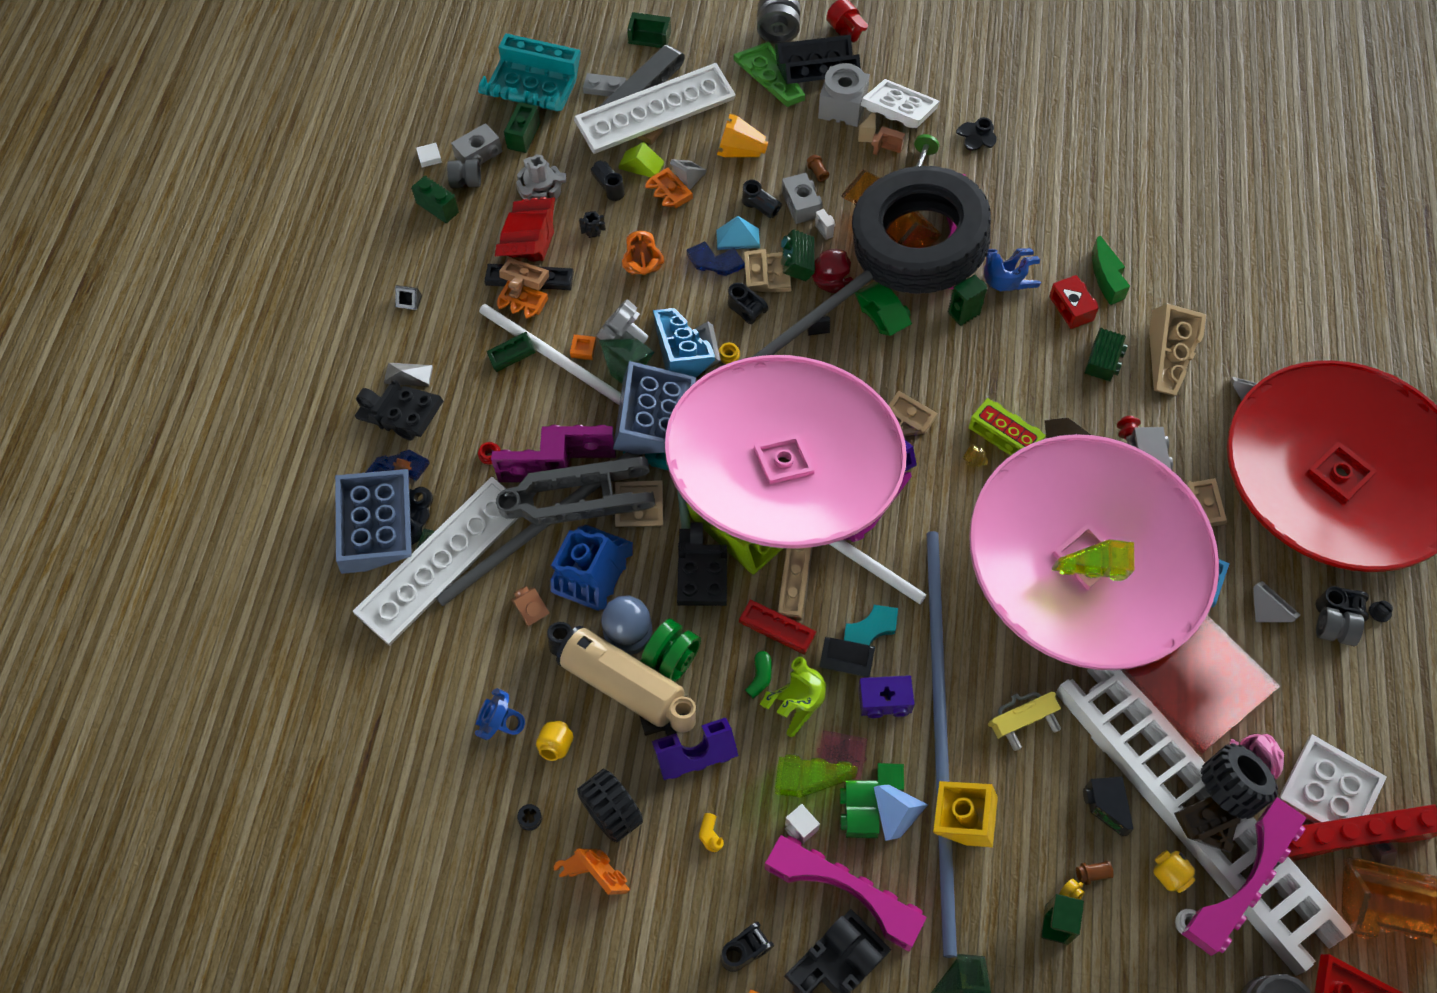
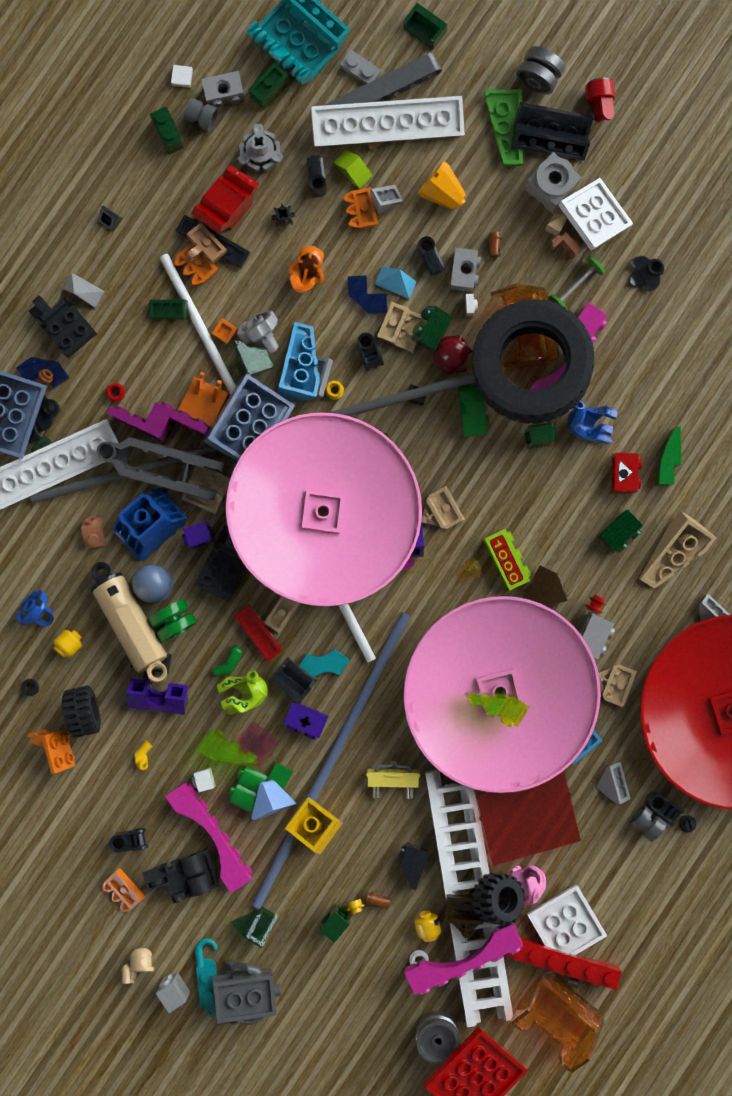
camera: 25 degrees right, 25 degrees up
(592, 413) = (203, 400): none -> orange plate
(655, 548) = (198, 535): none -> dark purple brick

